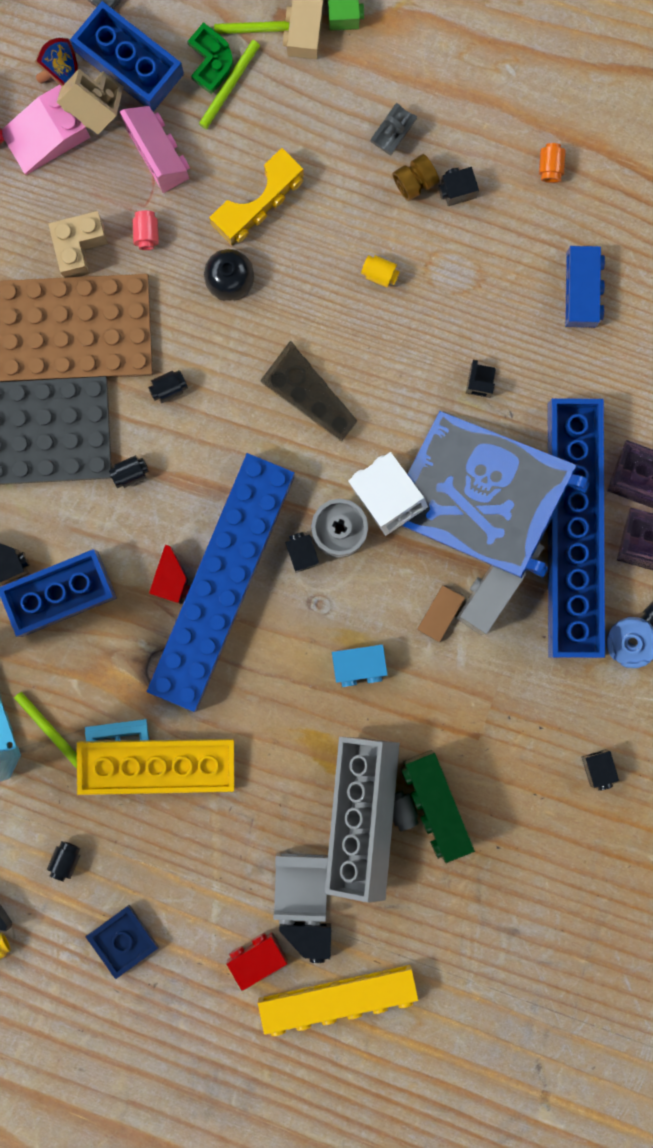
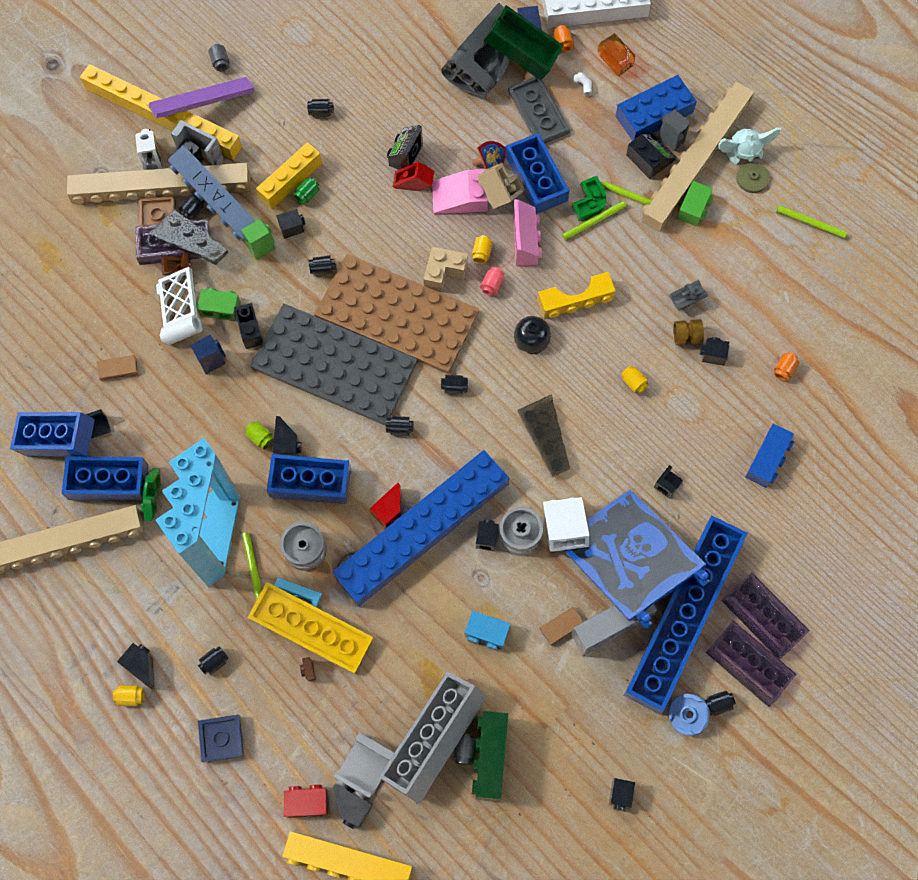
camera: 30 degrees right, 15 degrees down
(80, 682) = (303, 534): none -> light grey wheel
(111, 193) = (482, 249): none -> yellow brick
(178, 814) = (307, 669): none -> reddish brown plate

